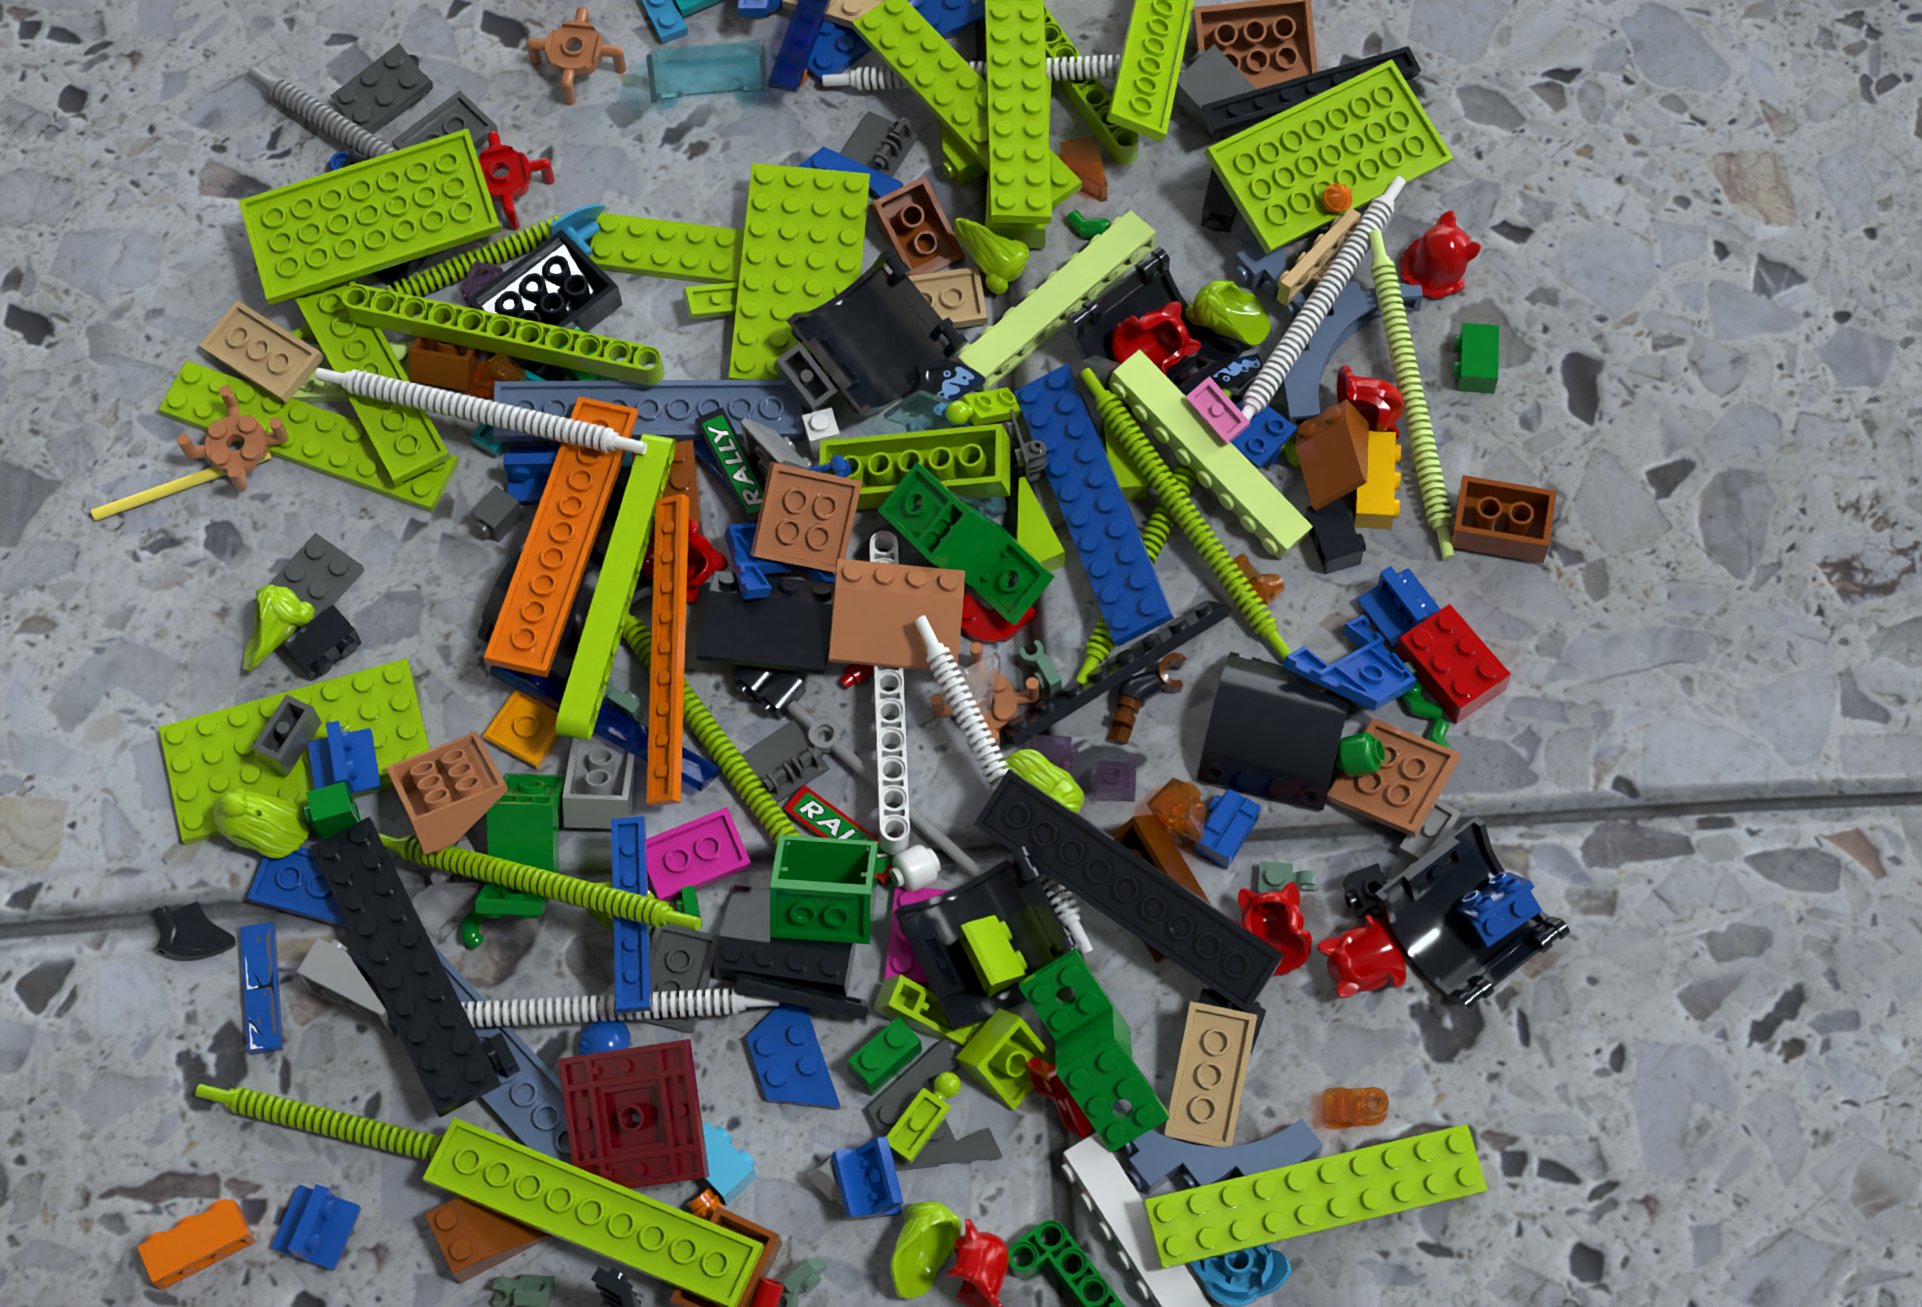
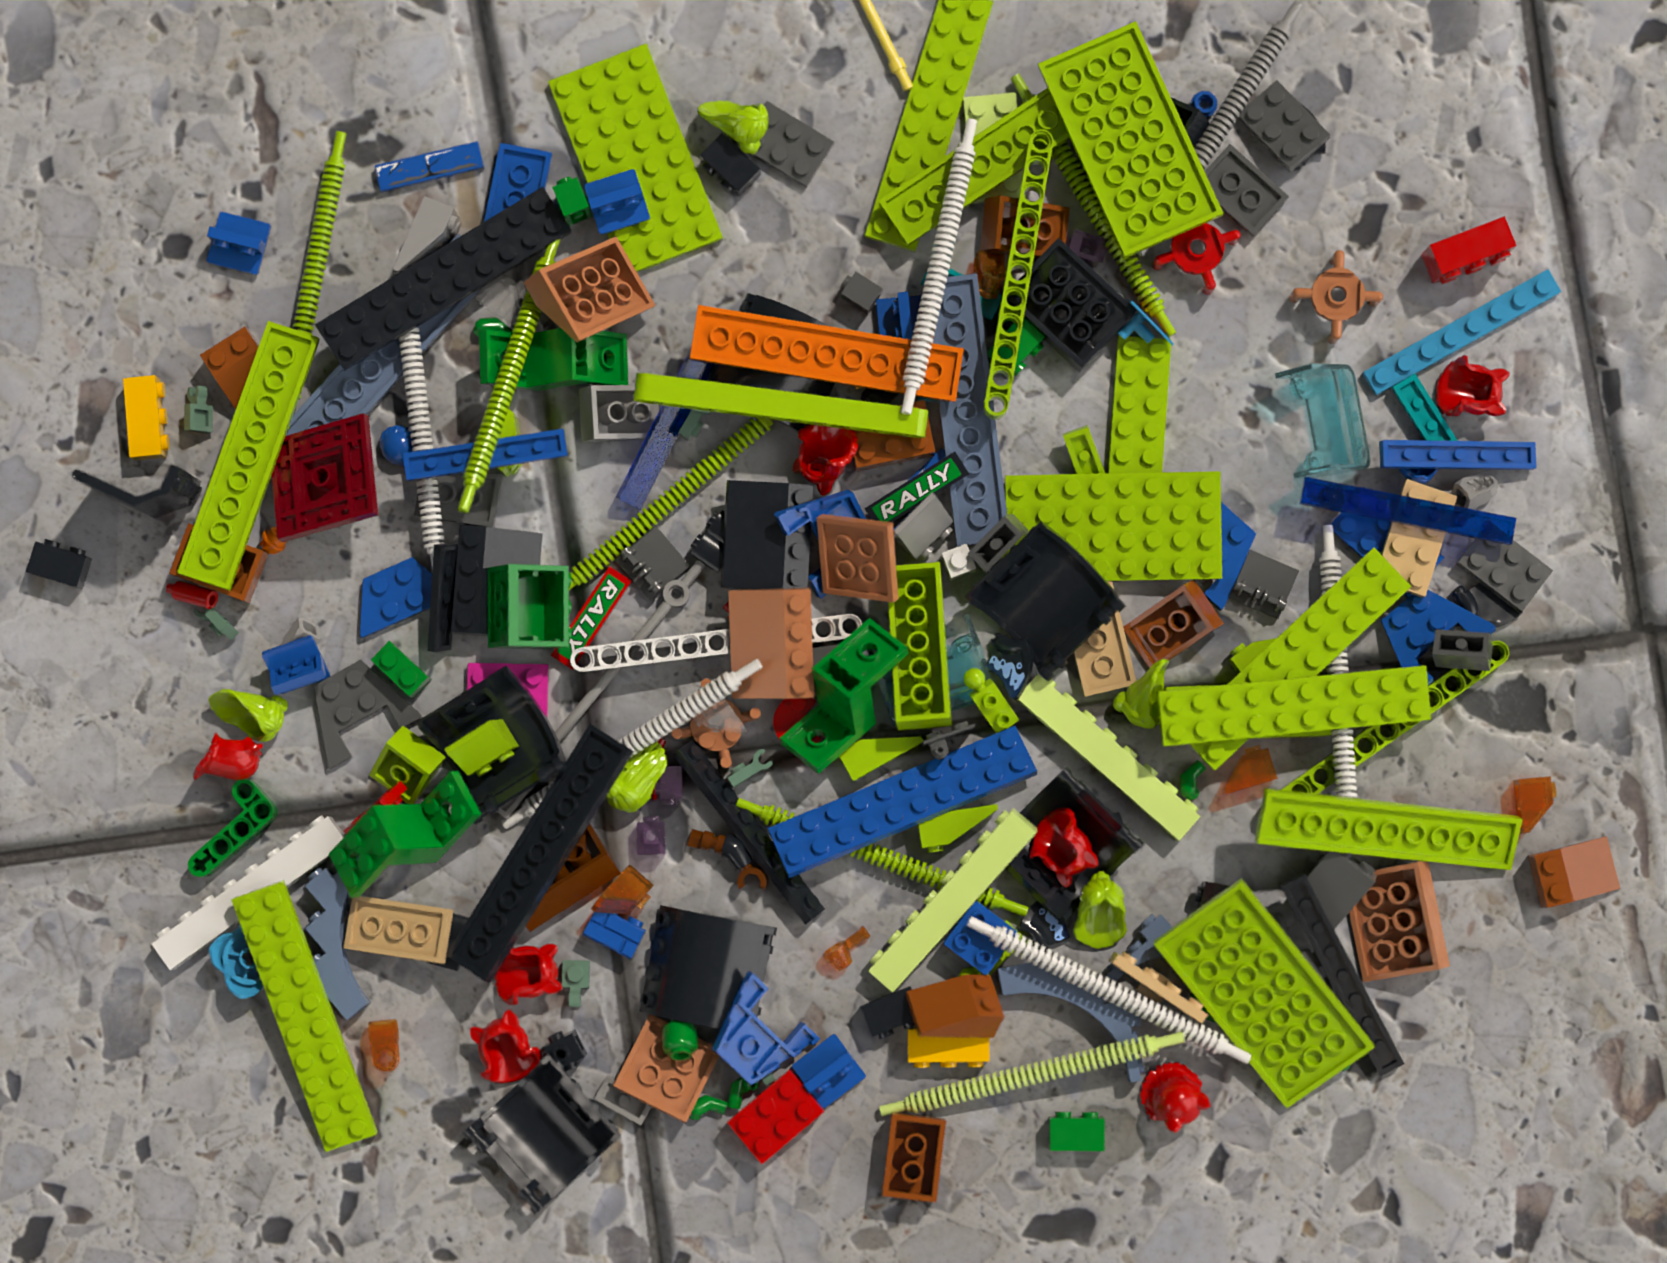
camera: 85 degrees right, 20 degrees up
(189, 933) = (471, 101): black arm -> none
(196, 1243) = (219, 153): orange brick -> none
(228, 430) = (906, 44): nougat plate -> none
(261, 351) = (1002, 65): tan plate -> none
(261, 822) = (561, 143): lime hair -> none
(287, 735) = (634, 151): dark grey brick -> none
(502, 1055) = (376, 368): black plate -> none
(524, 729) = (665, 344): light orange tile -> none
(668, 651) = (728, 455): orange plate -> none
(689, 903) = (516, 499): green plate -> none
(695, 854) = (563, 498): dark pink plate -> none
(728, 1168) = (305, 552): medium azure brick -> none
(837, 464) = (910, 581): blue hand -> none
(915, 868) = (560, 678): white head -> none
(919, 1010) = (442, 686): lime slope -> none
(923, 1117) = (348, 704): lime plate -> none
(1102, 370) = (1024, 798): dark grey brick -> none
(1176, 500) = (824, 938): lime hose -> none
(1218, 410) = (982, 905): bright pink plate -> none
(1284, 472) = (938, 961): clear plate -> none
(1337, 198) = (1214, 1002): orange plate -> none
(1373, 398) = (1015, 1039): red hair -> none
(1500, 907) = (556, 1156): blue bracket -> none

